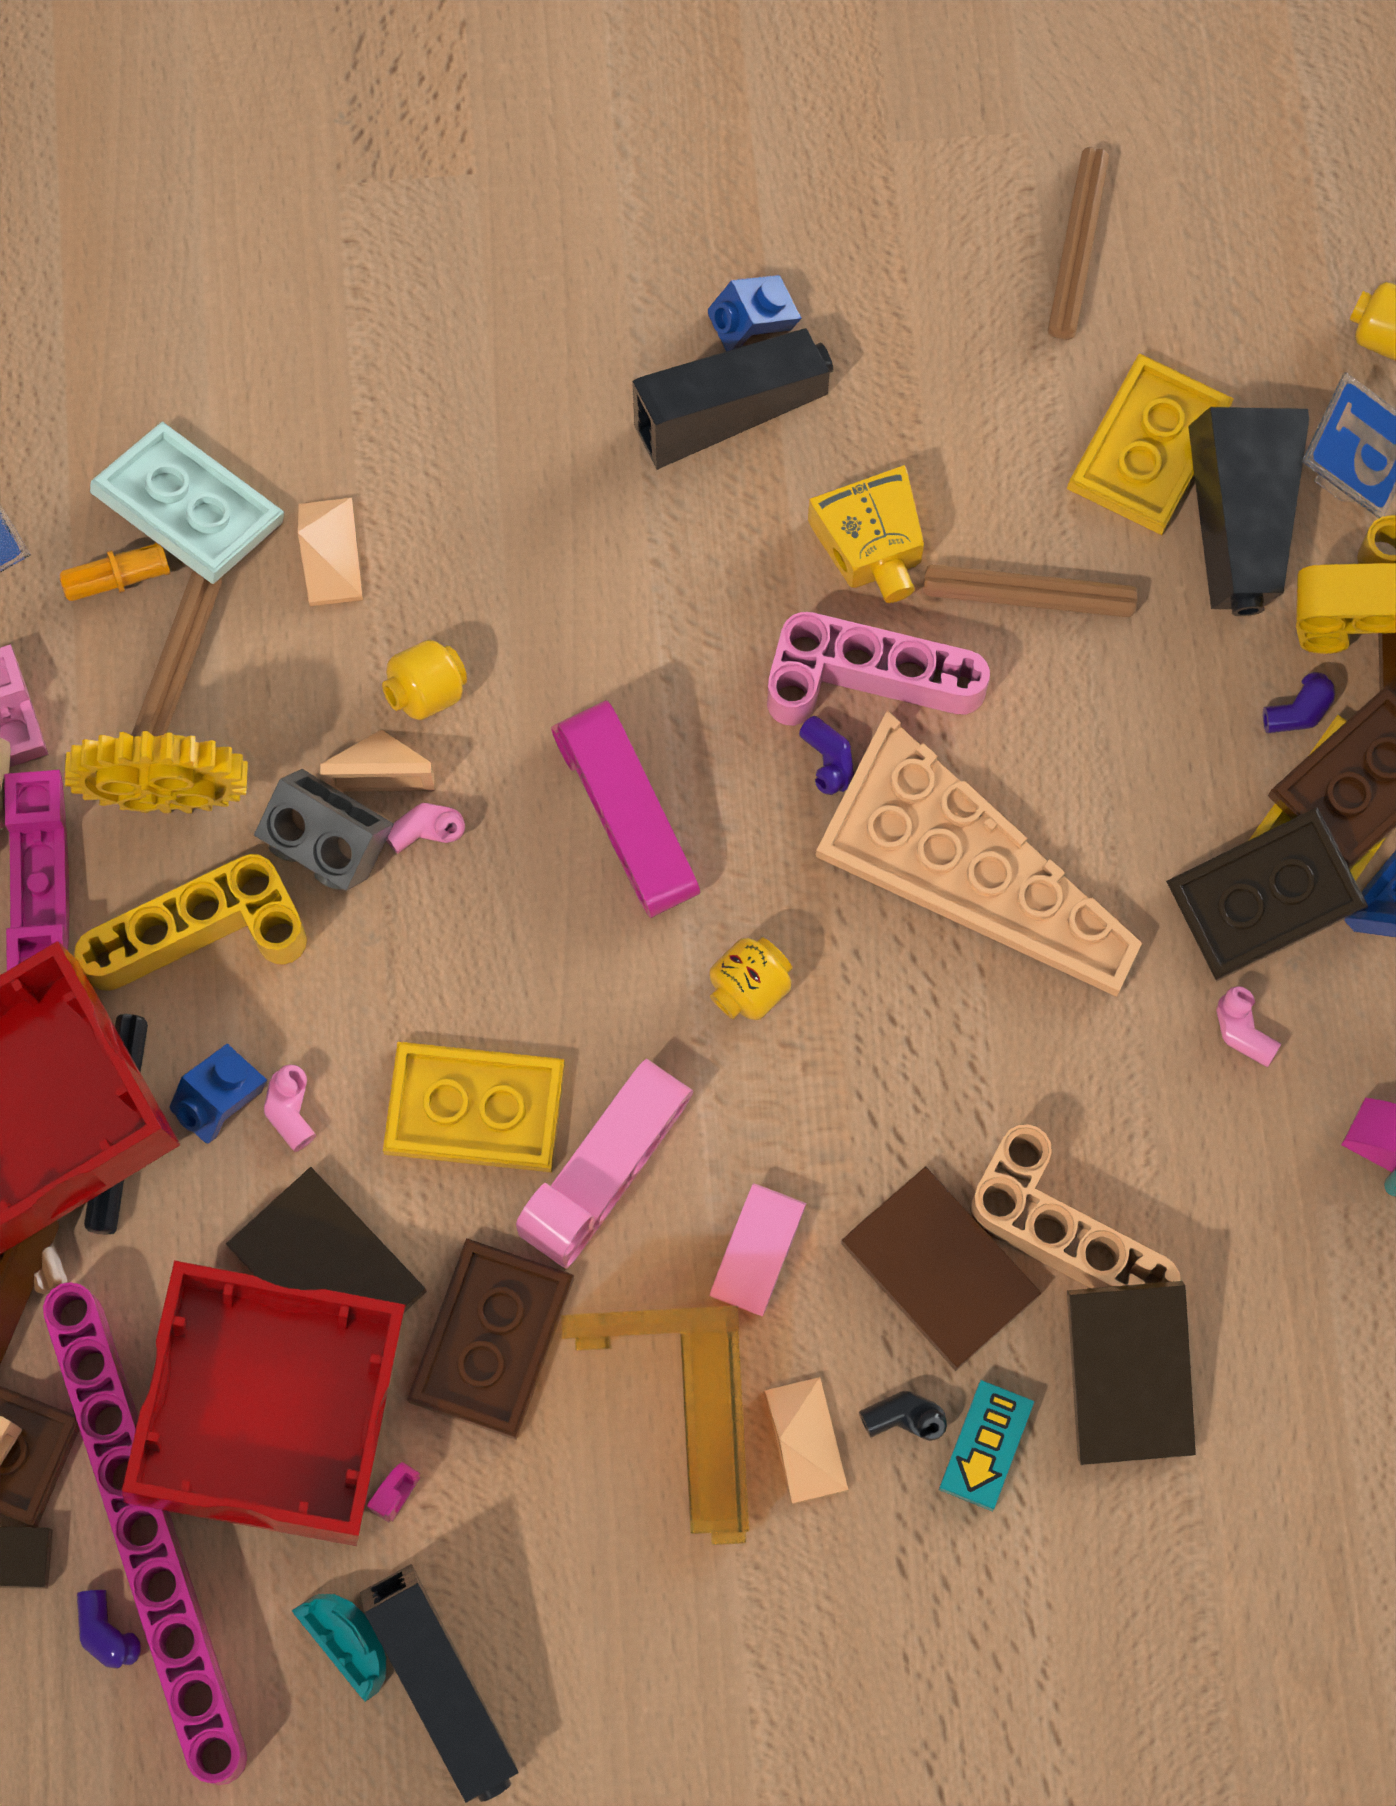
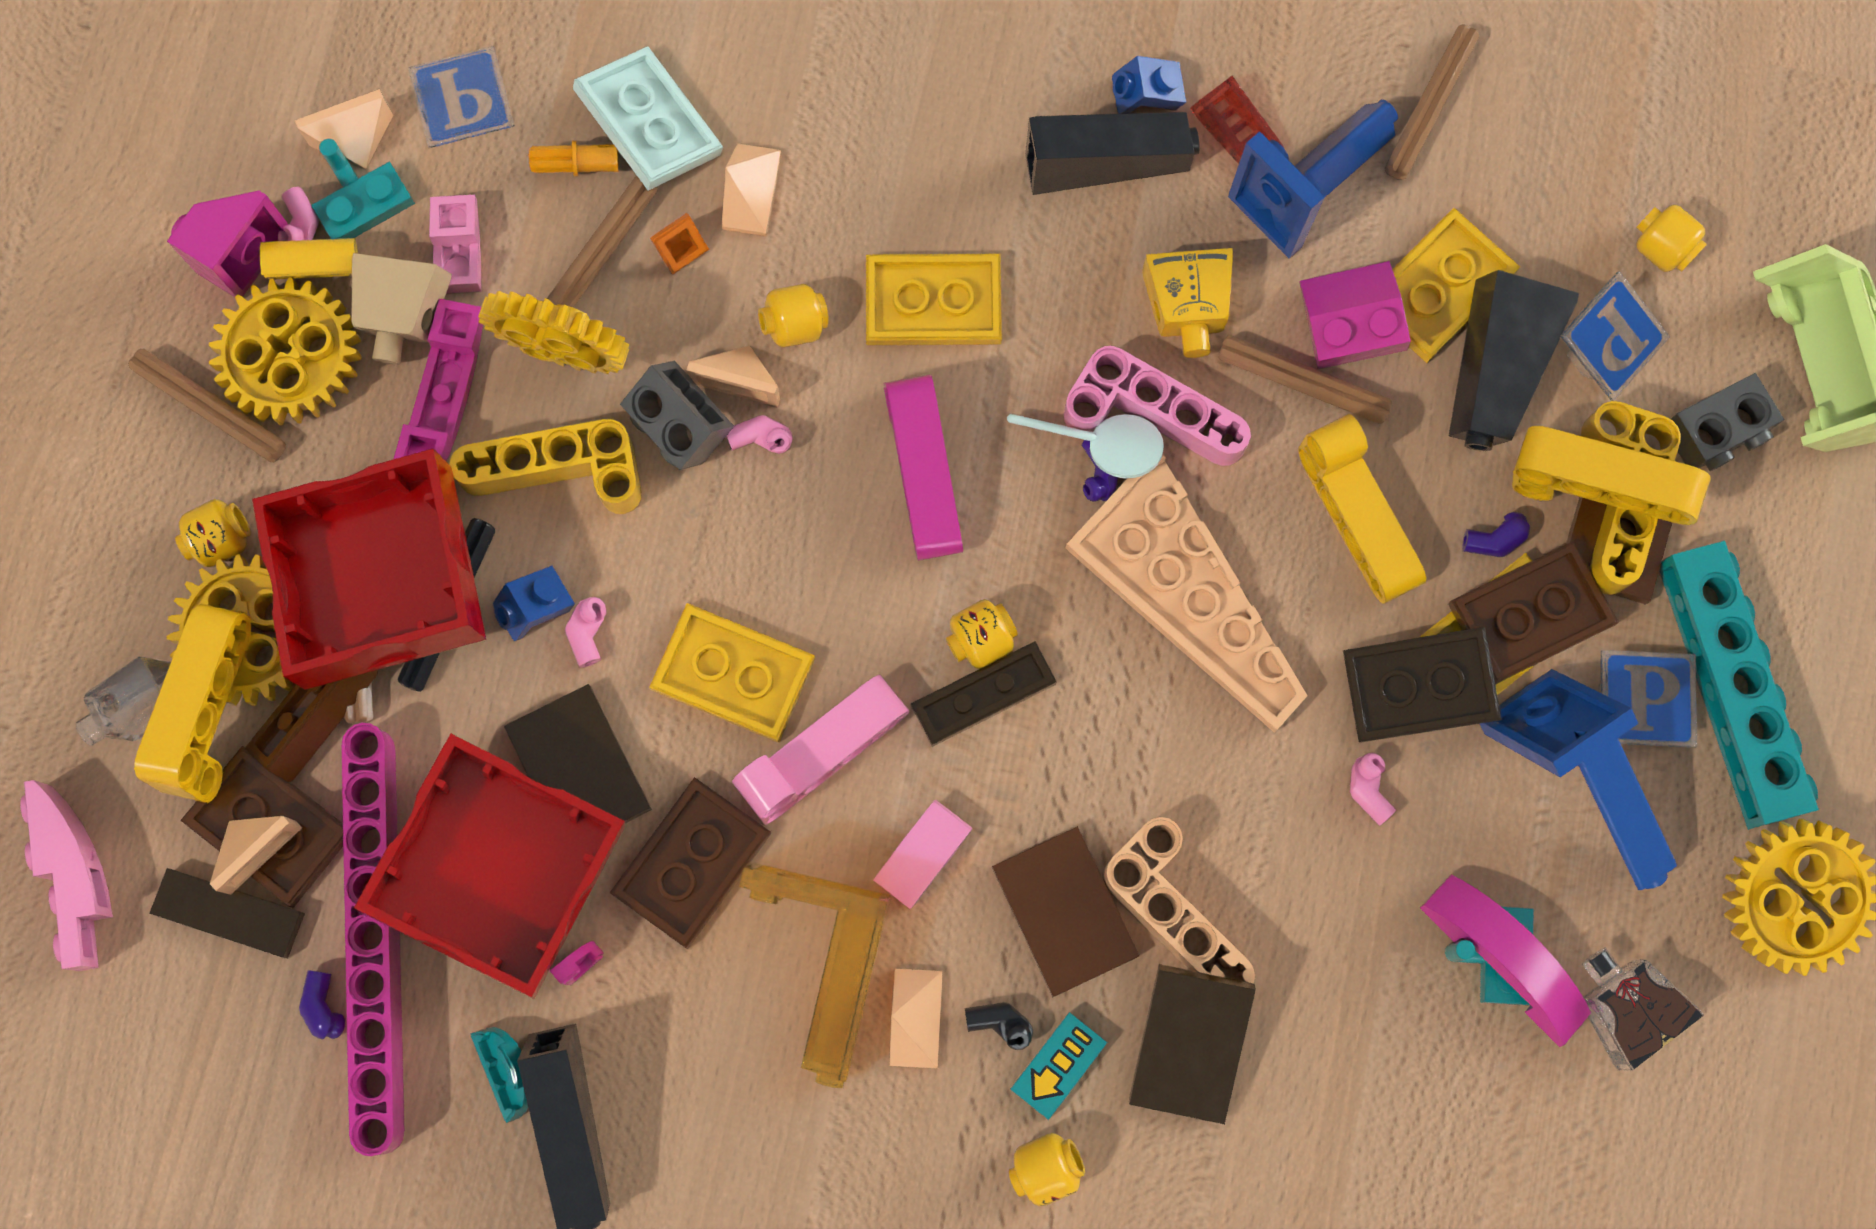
camera: 15 degrees right, 5 degrees up
(266, 635) = (679, 243): none -> orange slope
(579, 618) = (933, 299): none -> yellow tile
(771, 1048) = (983, 693): none -> dark brown tile
(841, 722) = (1119, 445): none -> light aqua piece
(843, 334) = (1239, 103): none -> clear red slope
(951, 390) = (1287, 197): none -> blue piece
(1009, 1565) = (1047, 1169): none -> yellow head
(1065, 503) = (1355, 315): none -> dark pink slope
(1135, 717) = (1359, 509): none -> yellow beam

